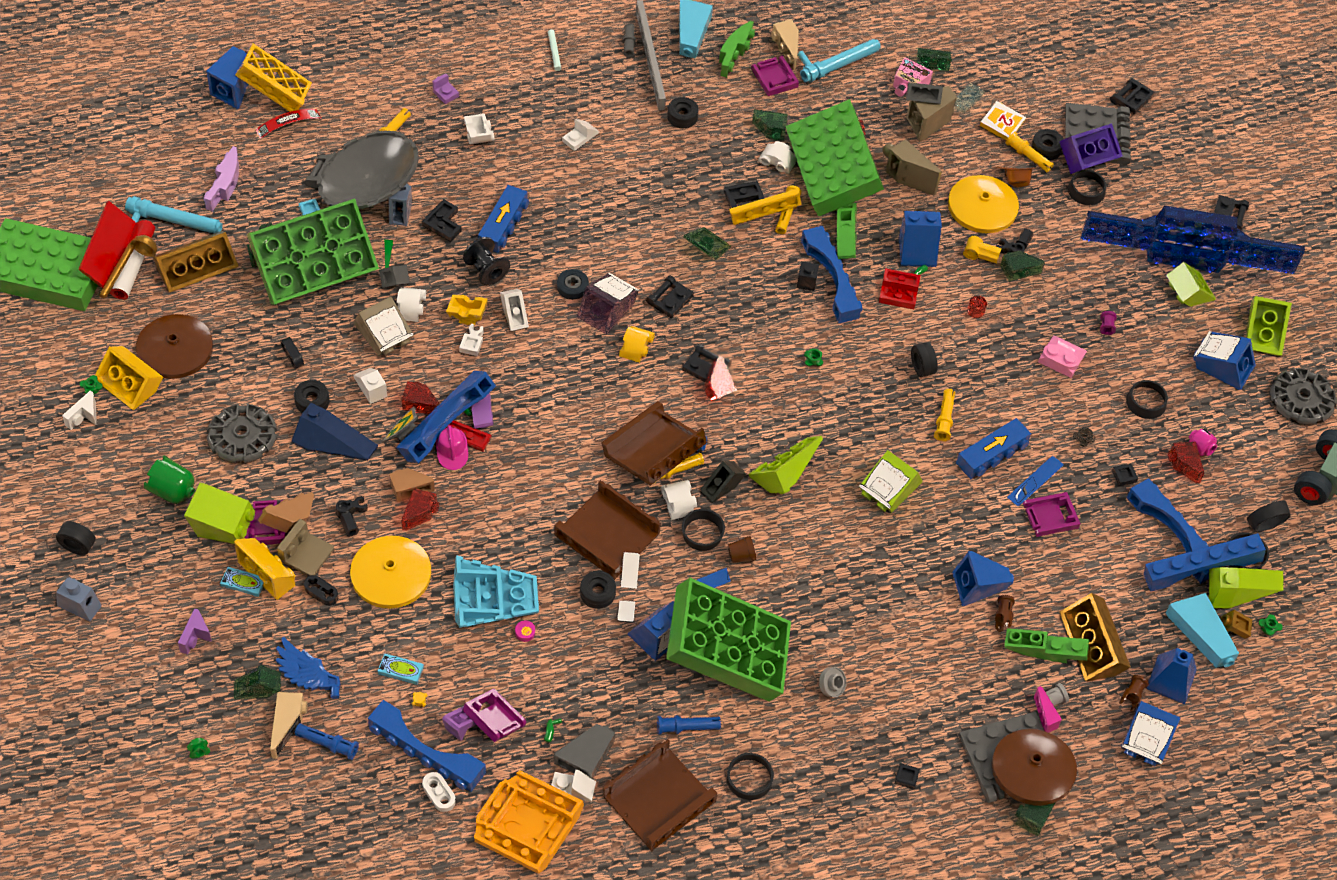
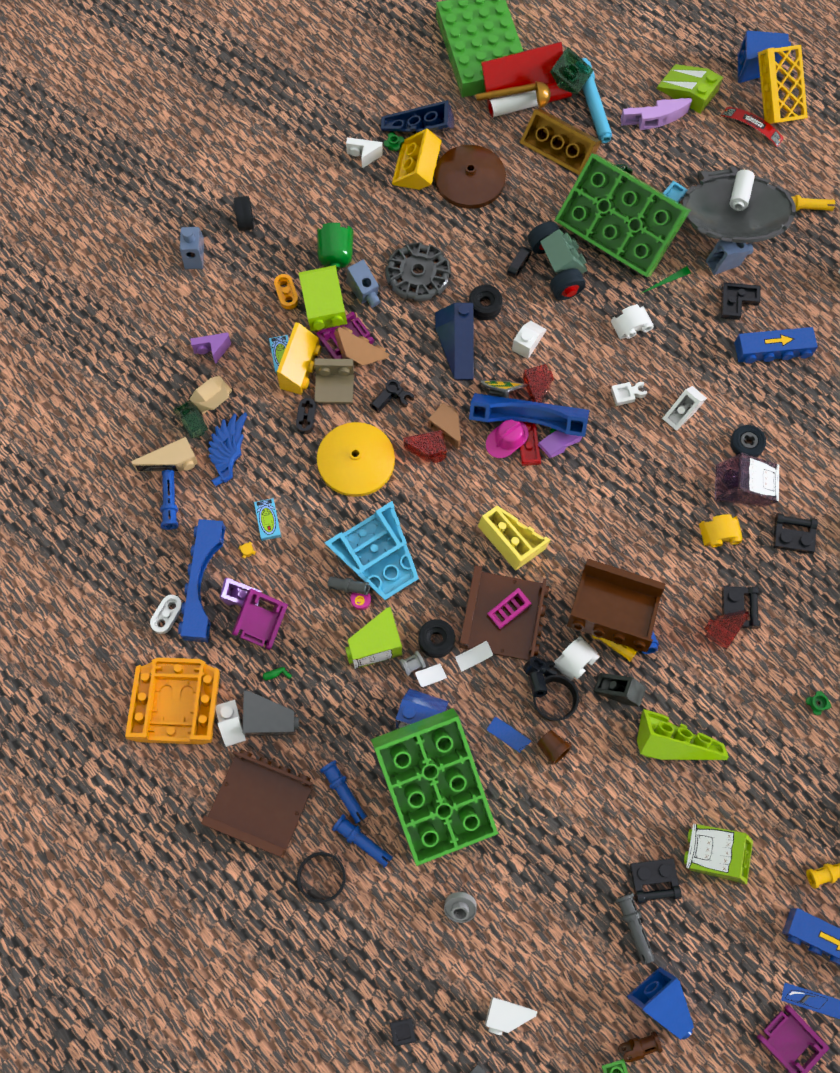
camera: 65 degrees right, 15 degrees up
(88, 351) = (435, 117): none -> dark blue wedge
(139, 212) = (571, 72): none -> clear green slope
(183, 547) = (286, 293): none -> light orange plate
(198, 748) = (111, 409): green plate -> none
(215, 140) = (692, 83): none -> lime slope
(227, 476) = (363, 283): none -> sand blue torso
(246, 655) = (210, 394): none -> tan slope
(316, 314) = (563, 257): none -> brick
(351, 160) = (742, 190): none -> white brick
(383, 327) = (590, 315): slope -> none
(394, 276) = (651, 294): dark grey panel -> none
(466, 310) = (656, 368): yellow cylinder -> none
(489, 268) = (711, 364): black hose -> none
(508, 631) = (348, 585): none -> dark grey pin
(546, 488) = (512, 538): none -> light yellow wedge
(574, 629) = (375, 641): none -> lime slope
(606, 507) = (514, 614): none -> dark pink slope
(608, 618) = (412, 663): none -> light grey bush
(675, 527) = (535, 670): none -> black bar
(729, 733) = (353, 834): none -> blue pin
(880, 537) = (653, 873): none -> black plate
(906, 568) = (632, 918): none -> dark grey pin
(933, 692) = (506, 1016): none -> white slope

